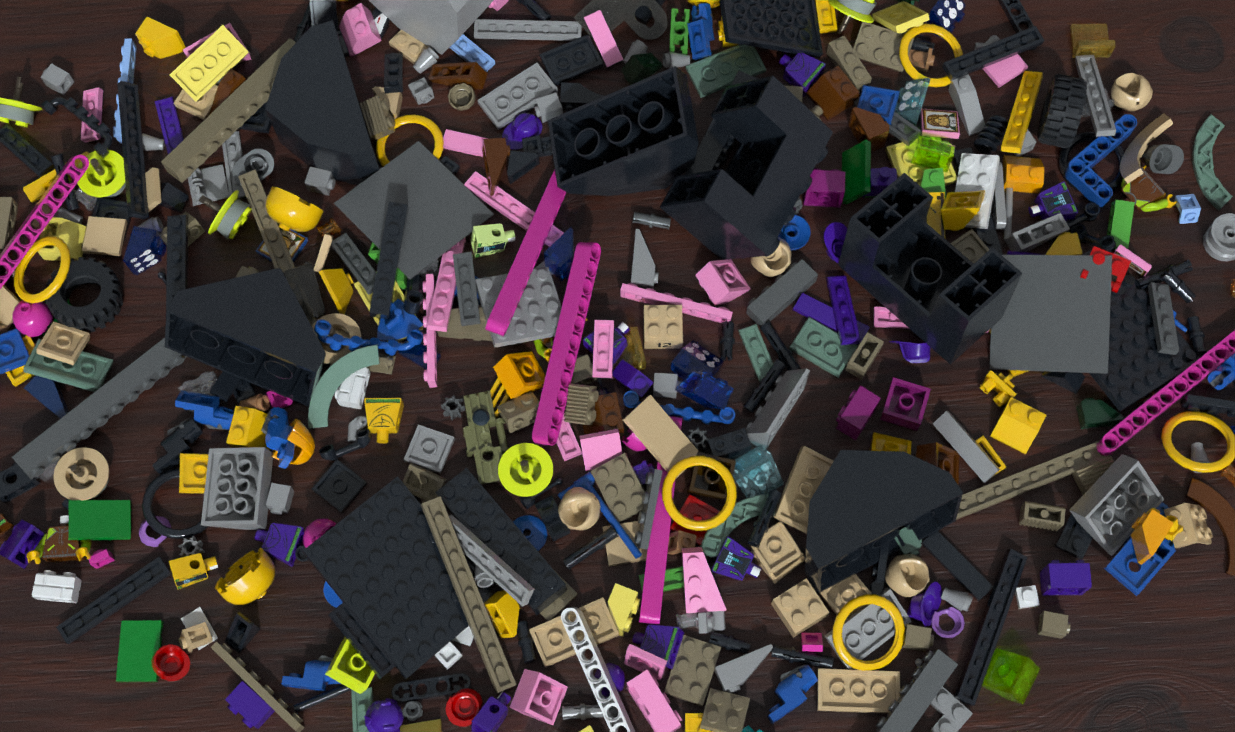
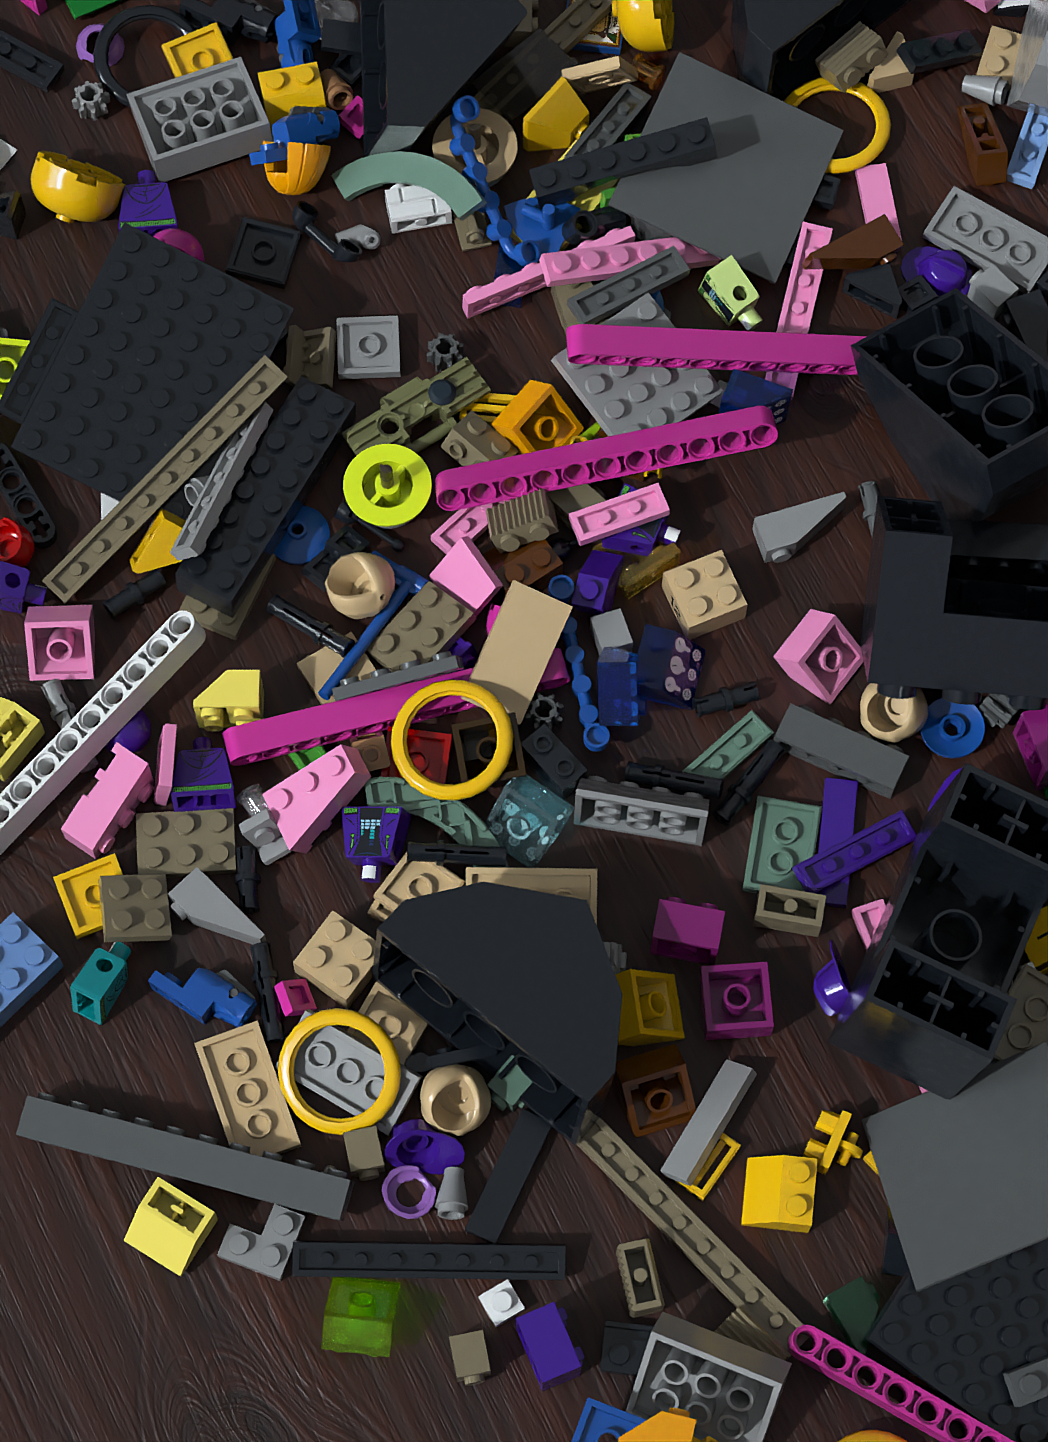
camera: 65 degrees right, 0 degrees up
(185, 572) = (58, 110): yellow torso -> none
(279, 498) = (209, 181): light grey brick -> none
(319, 181) = (717, 27): light grey brick -> none
(383, 416) = (390, 265): yellow torso -> none
(421, 91) = (932, 104): light grey bracket -> none
(448, 655) = (74, 497): white plate -> none
(461, 97) = (948, 162): dark tan hair -> none
(554, 641) = (195, 673): tan plate -> none
(689, 307) = (751, 588): bright pink plate -> none

